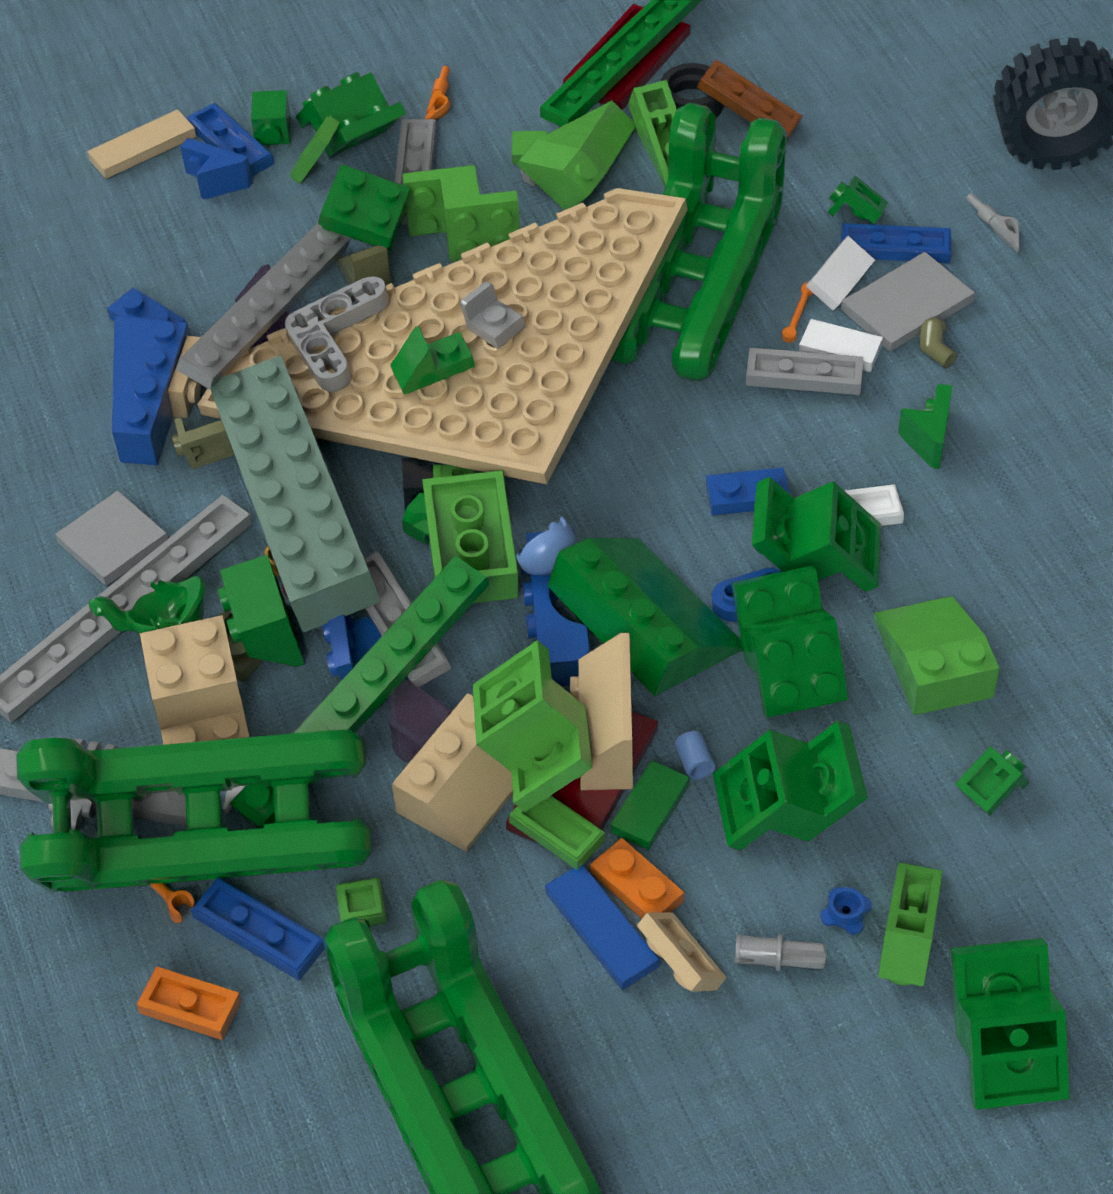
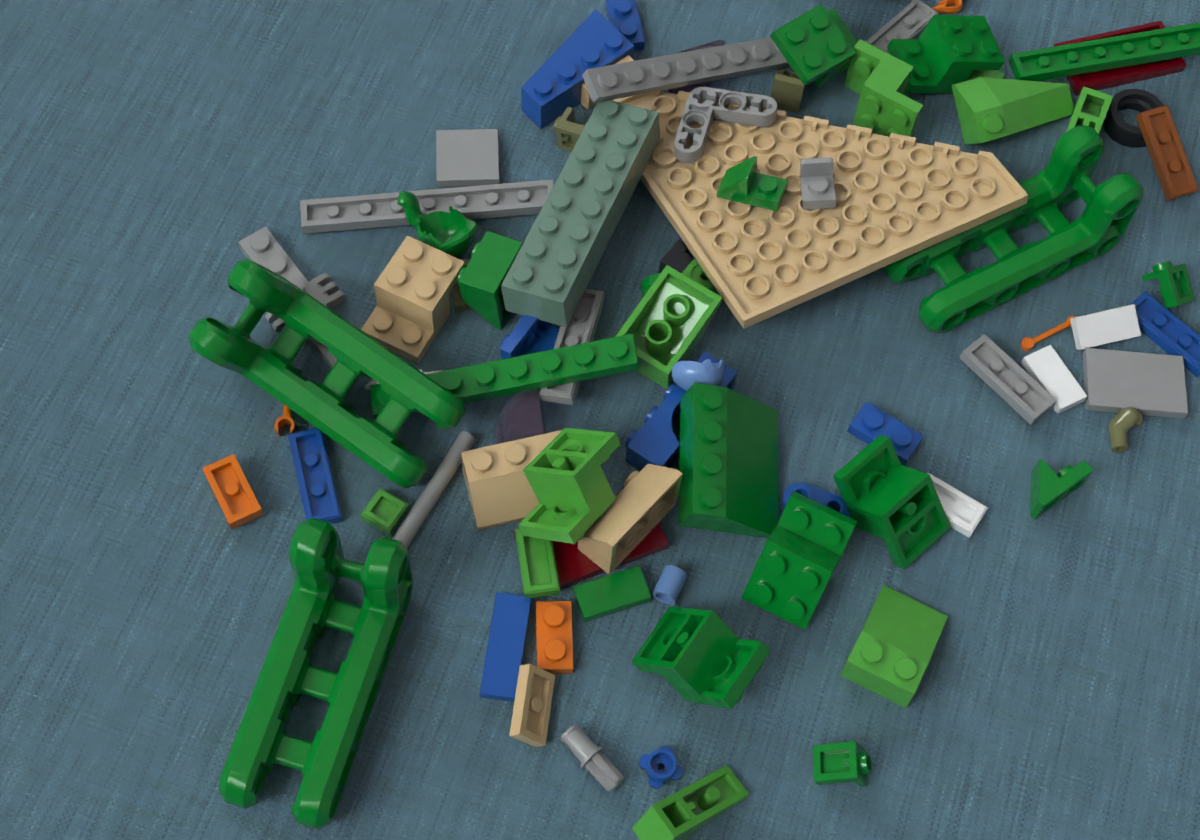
camera: 35 degrees right, 10 degrees up
(389, 848) = (434, 489): none -> light grey piece
(488, 135) = (948, 52): none -> green bracket

